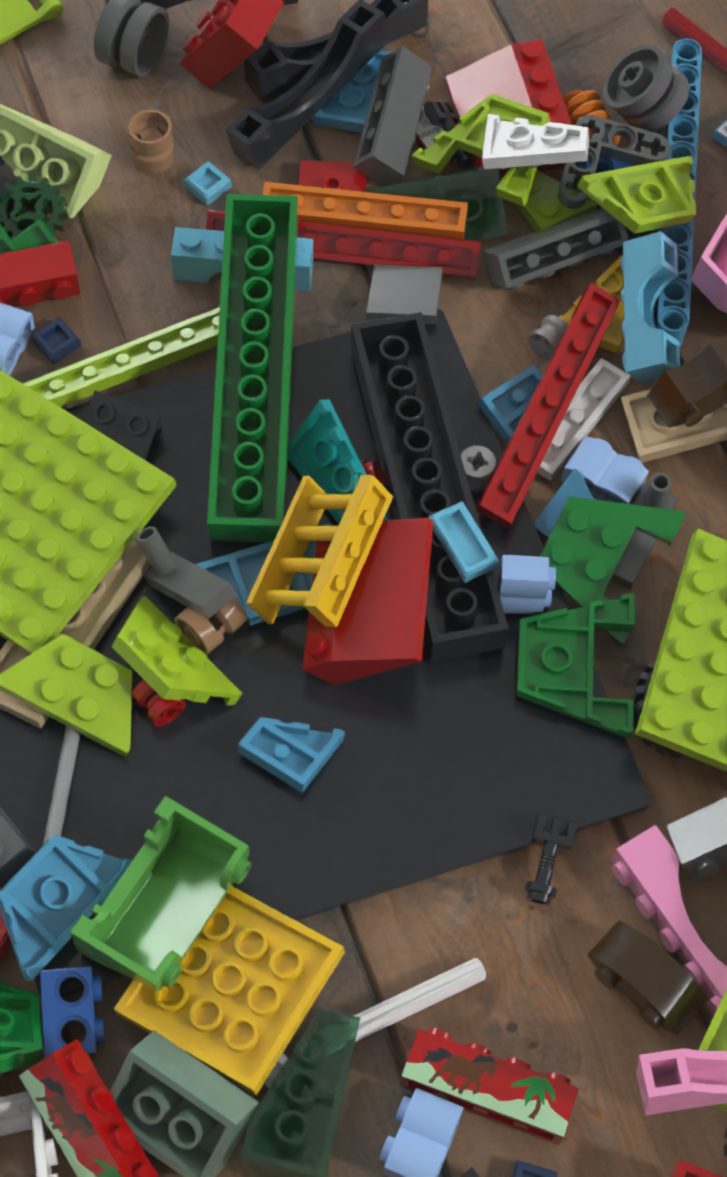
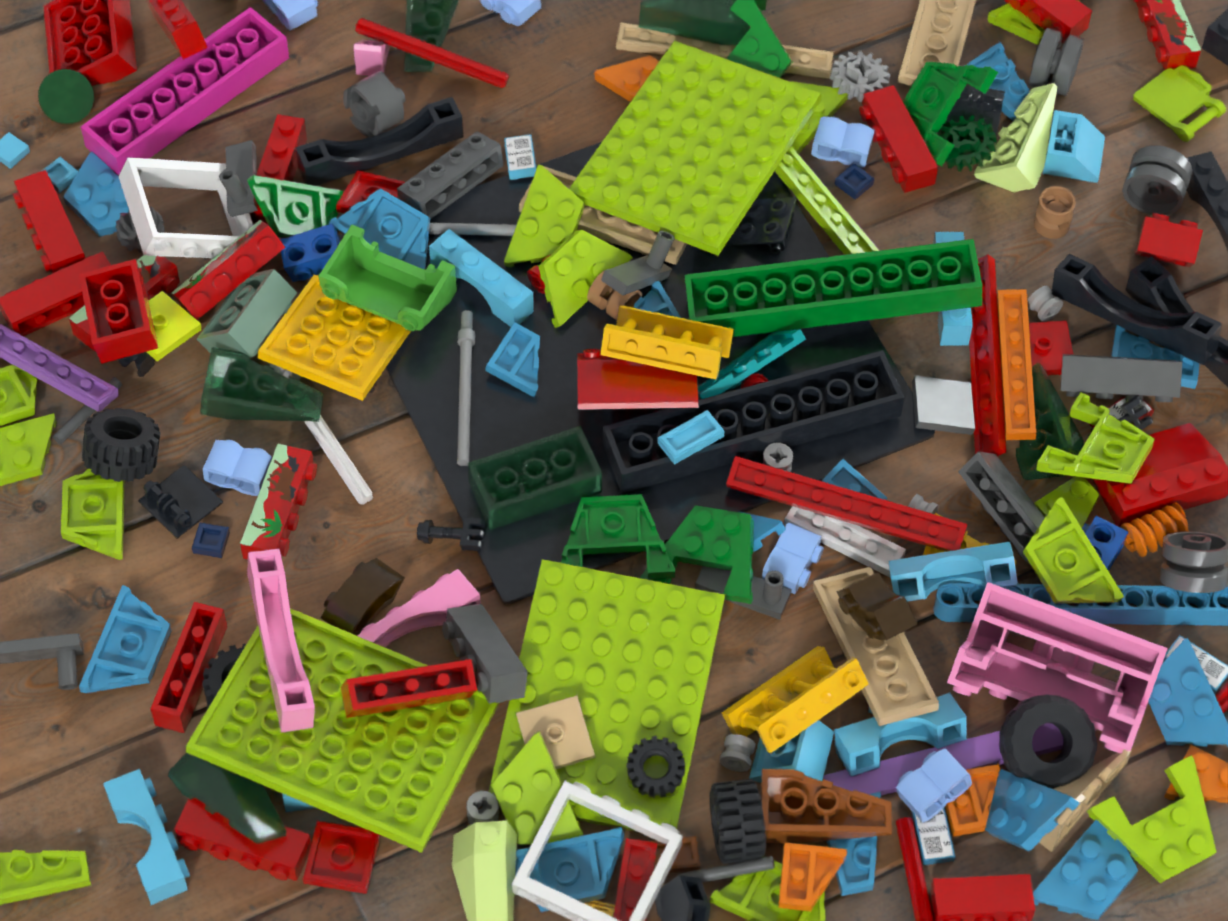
camera: 85 degrees right, 5 degrees down
(61, 107) = (1074, 148): none -> medium azure slope
(126, 803) = (504, 294): none -> medium azure arch
(207, 183) = (1030, 261): medium azure tile -> none
(246, 813) = (466, 340): none -> light grey bar
(277, 171) = (1044, 303): none -> light grey wheel
(490, 740) = (534, 477): none -> clear green brick
(525, 584) = (666, 488): light blue brick -> none
(532, 145) = (1090, 457): white wing -> none
(602, 144) = (1120, 527): dark grey beam -> none

